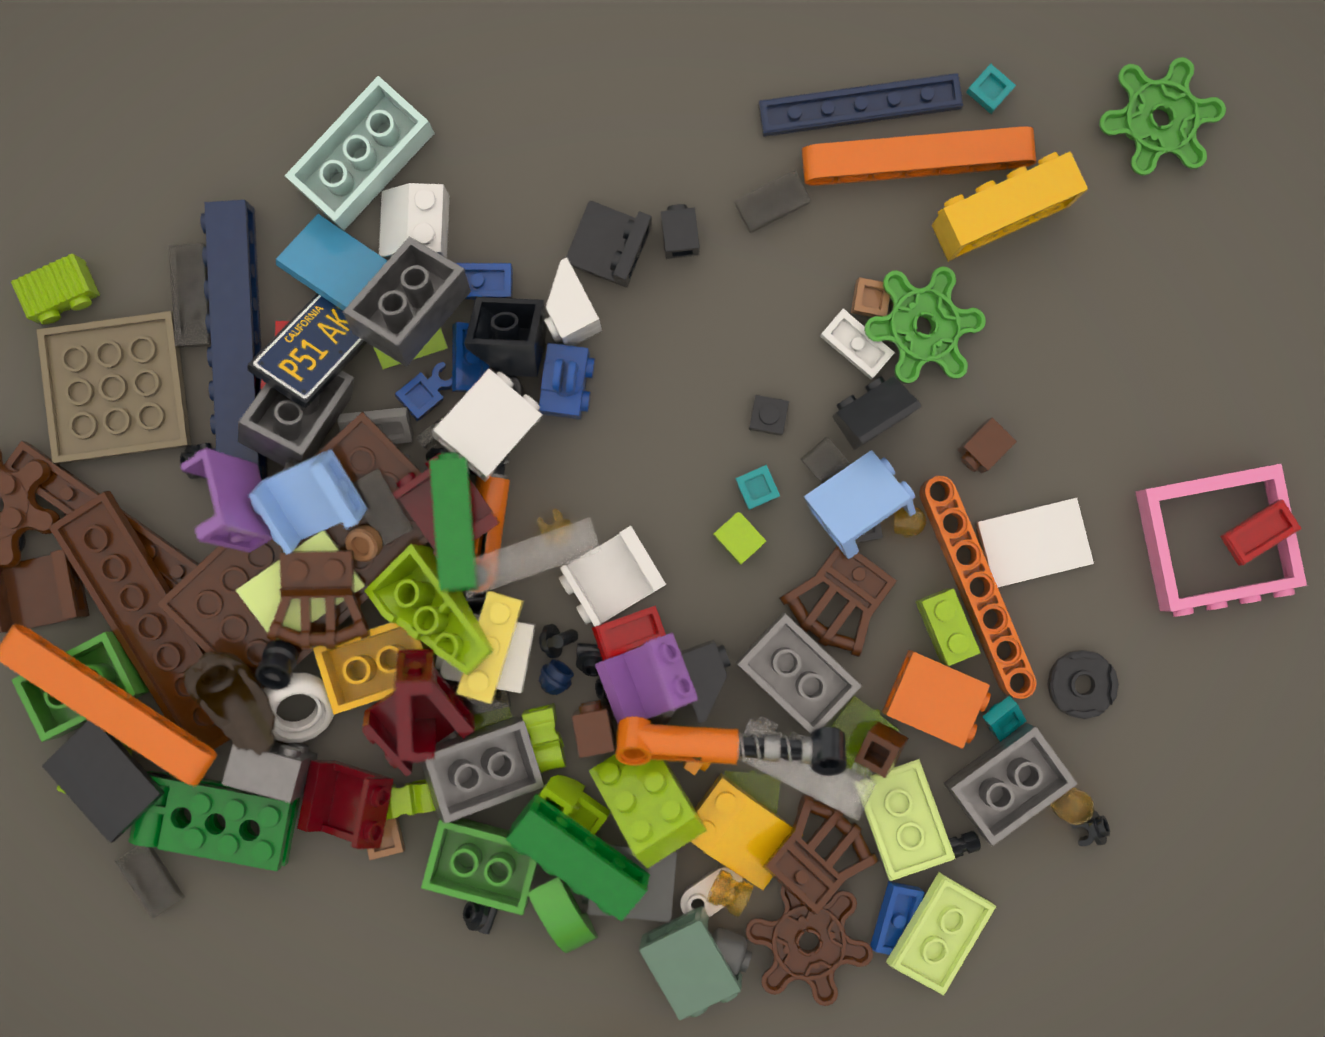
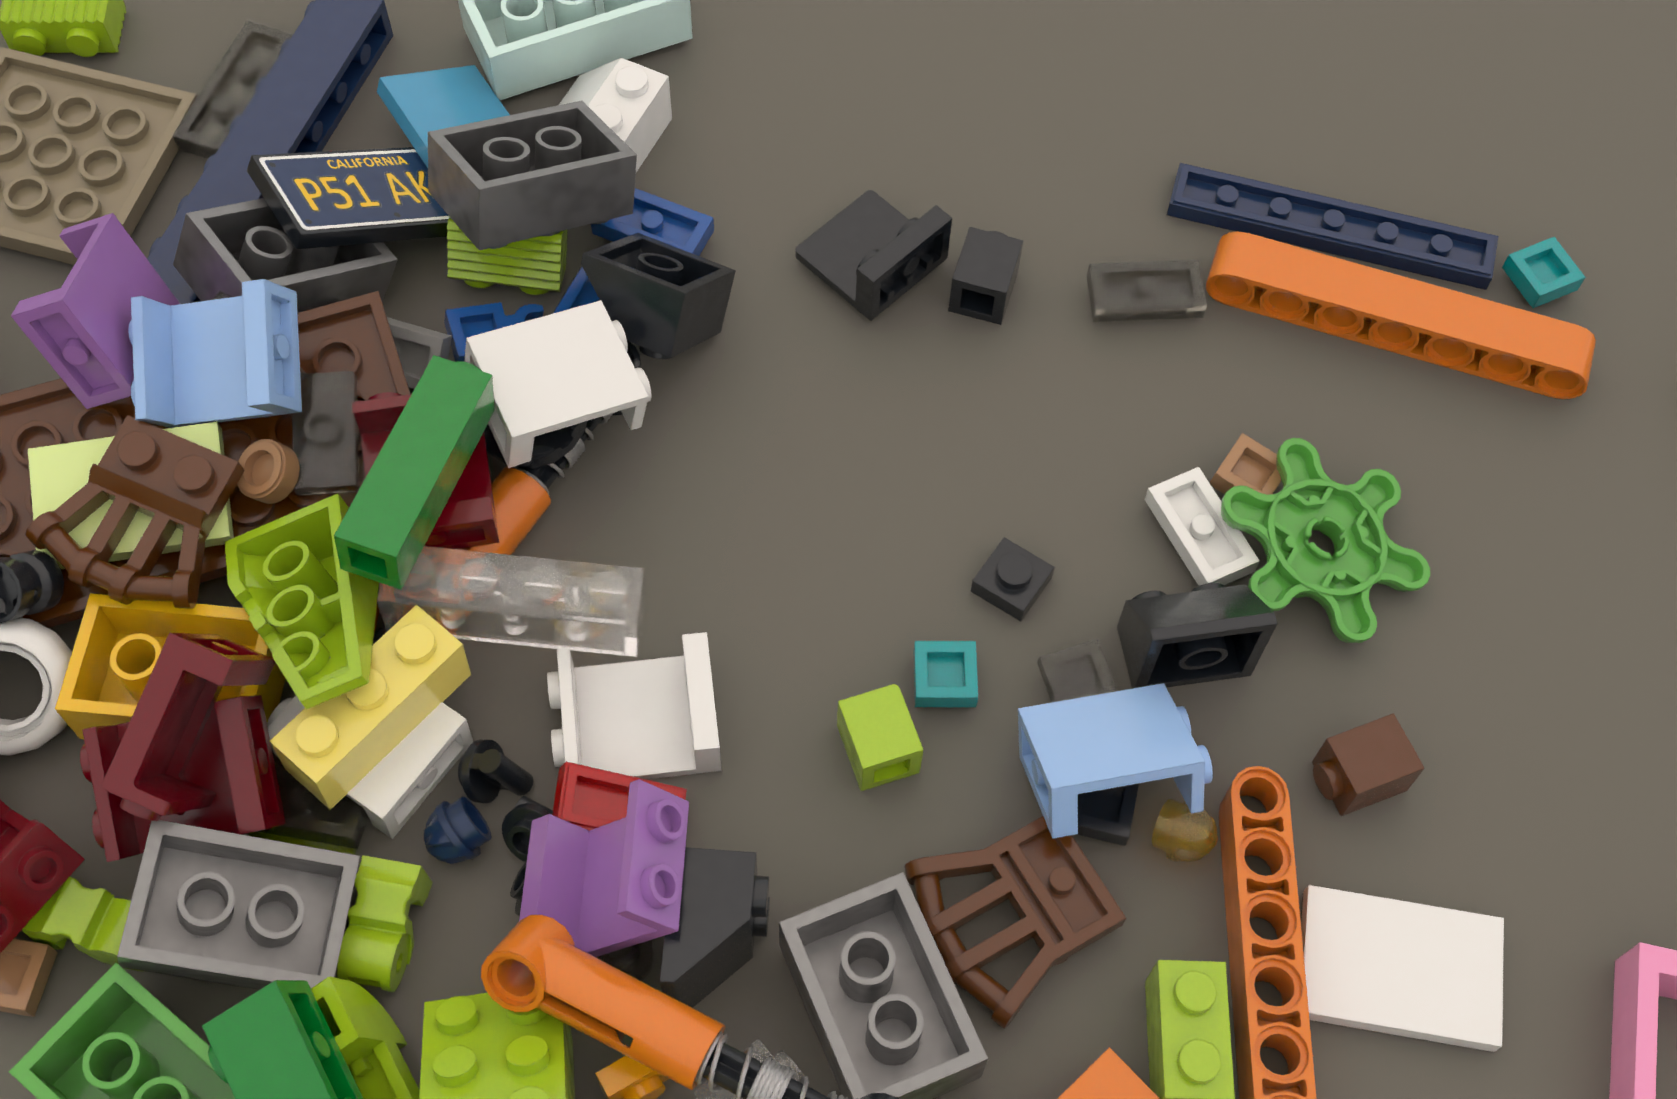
camera: 15 degrees right, 25 degrees down
(565, 381) = (710, 399): blue brick -> none
(569, 309) = (767, 298): white slope -> none
(594, 729) = (465, 925): reddish brown brick -> none
(1008, 205) = (1524, 418): yellow brick -> none

